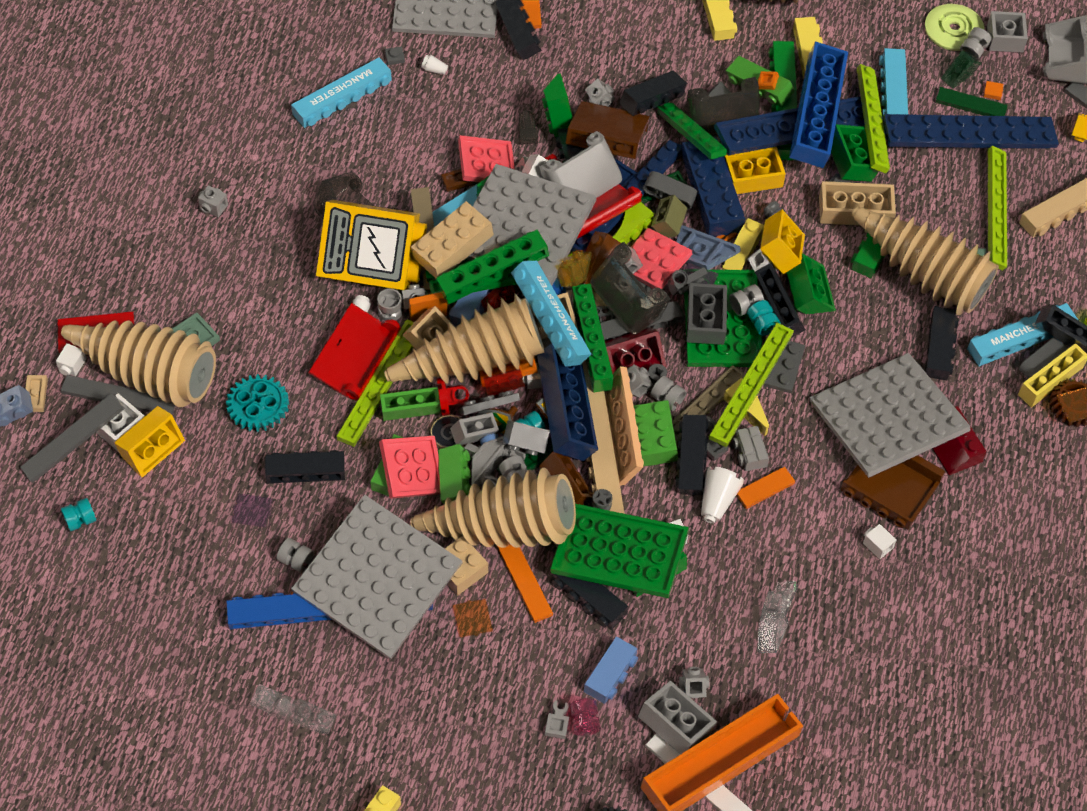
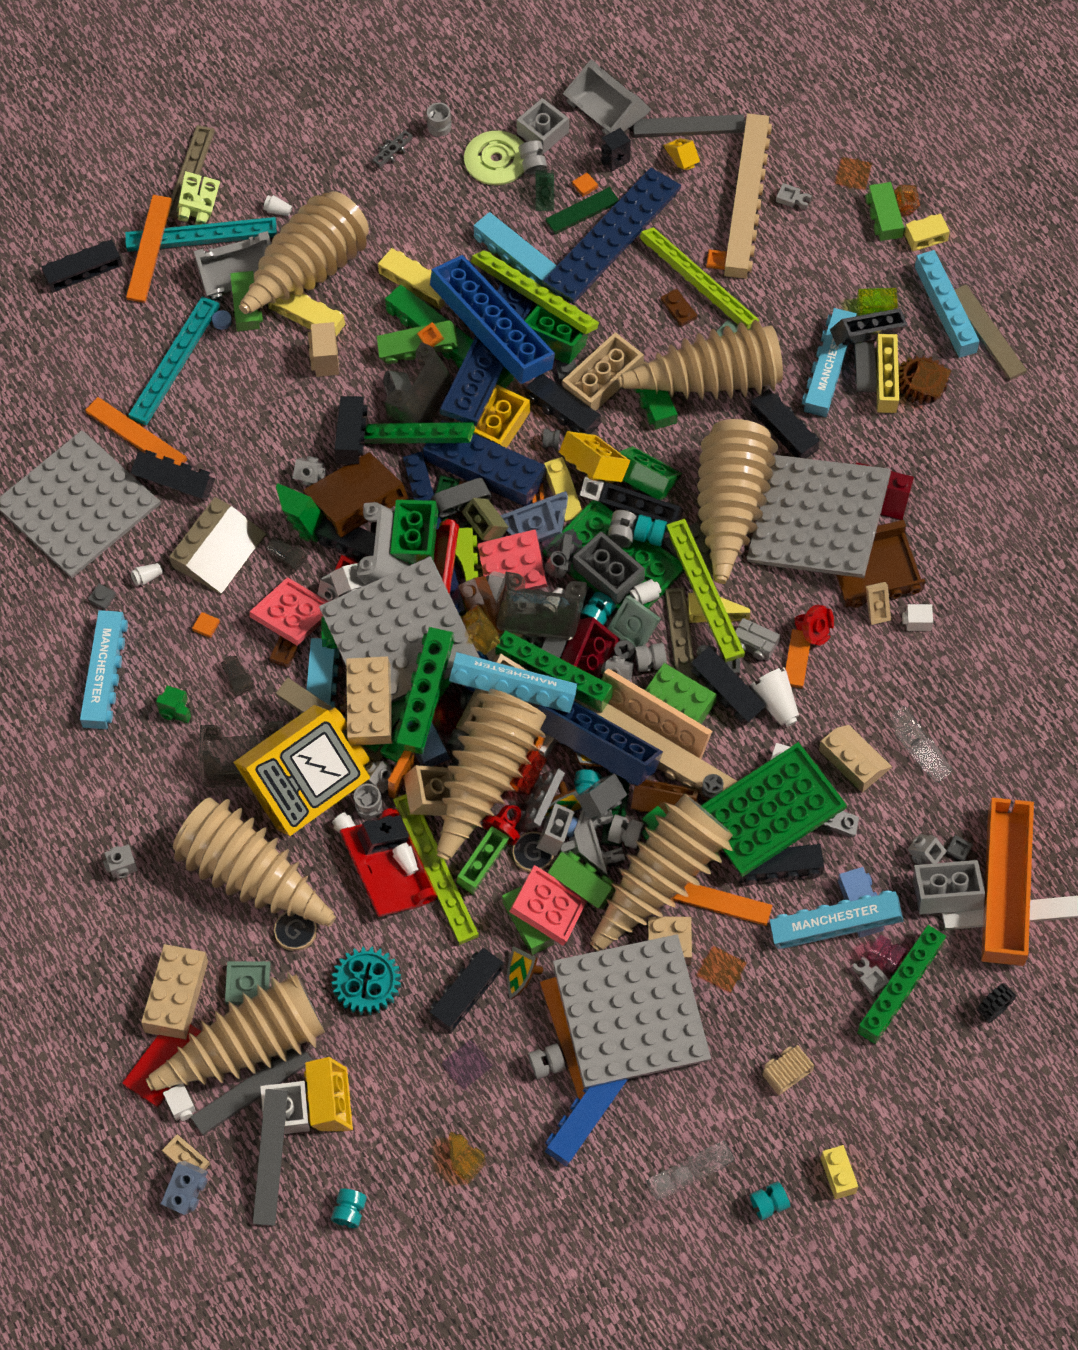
camera: 45 degrees left, 5 degrees up
(147, 297) = (174, 992): none -> tan brick
(176, 557) = (464, 1159): none -> clear yellow slope
(258, 335) = (294, 932): none -> black tile
(272, 263) = (246, 862): none -> tan cone
(313, 779) = (770, 1200): none -> teal wheel
(349, 490) = (520, 971): none -> shield
(354, 147) = (172, 704): none -> green brick
(363, 330) = (382, 834): none -> black brick
(369, 357) = (405, 857): none -> white cone
(409, 170) = (238, 678): none -> clear smoke piece
(431, 124) = (206, 625): none -> orange tile
(431, 717) = (787, 1069): none -> tan brick
(493, 86) = (217, 546): none -> slope
(570, 745) = (901, 984): none -> green brick
(576, 660) = (836, 920): none -> medium azure brick
(610, 177) = (414, 530): none -> green slope
(661, 609) = (842, 823): none -> plate
(672, 334) = (599, 607): none -> teal wheel
(683, 362) = (634, 622): none -> sand green plate
(697, 36) = (323, 349): none -> tan brick
(713, 350) = (646, 591): none -> white brick
(720, 707) = (959, 848): none -> dark grey tile
(724, 580) = (853, 757): none -> tan slope
(802, 477) = (816, 624): none -> red tile
(807, 200) = (562, 405): none -> black brick
(852, 337) = (732, 488): none -> tan cone
(860, 504) = (878, 603): none -> tan plate
(962, 213) = (679, 307): none -> reddish brown plate
(1023, 206) = (716, 259): none -> orange tile
(1036, 83) = (615, 149): none -> black brick

